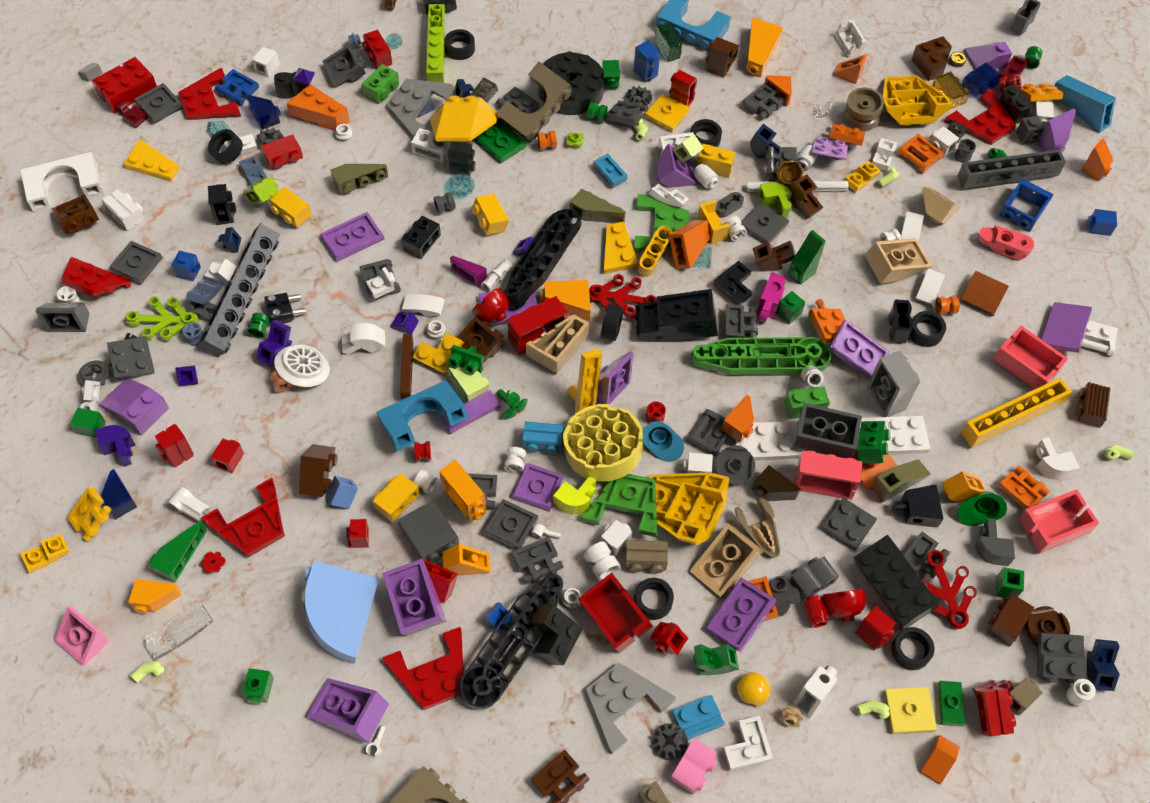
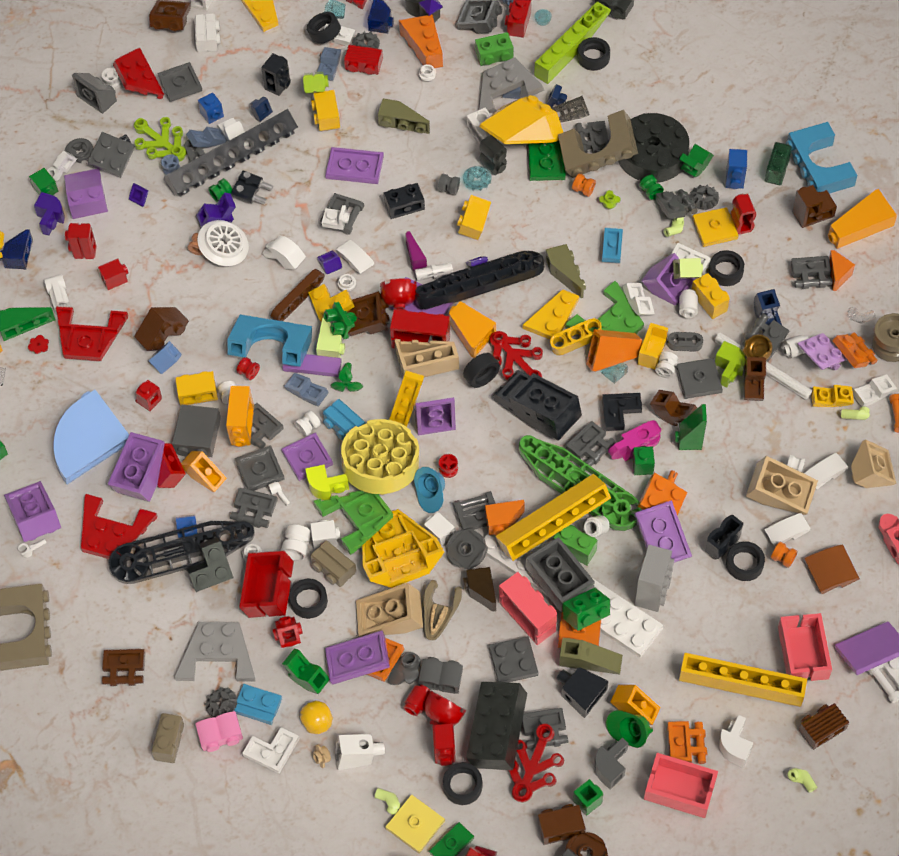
camera: 45 degrees right, 0 degrees up
(485, 435) = (306, 390): none -> sand blue slope
(780, 392) = (553, 517): none -> yellow brick

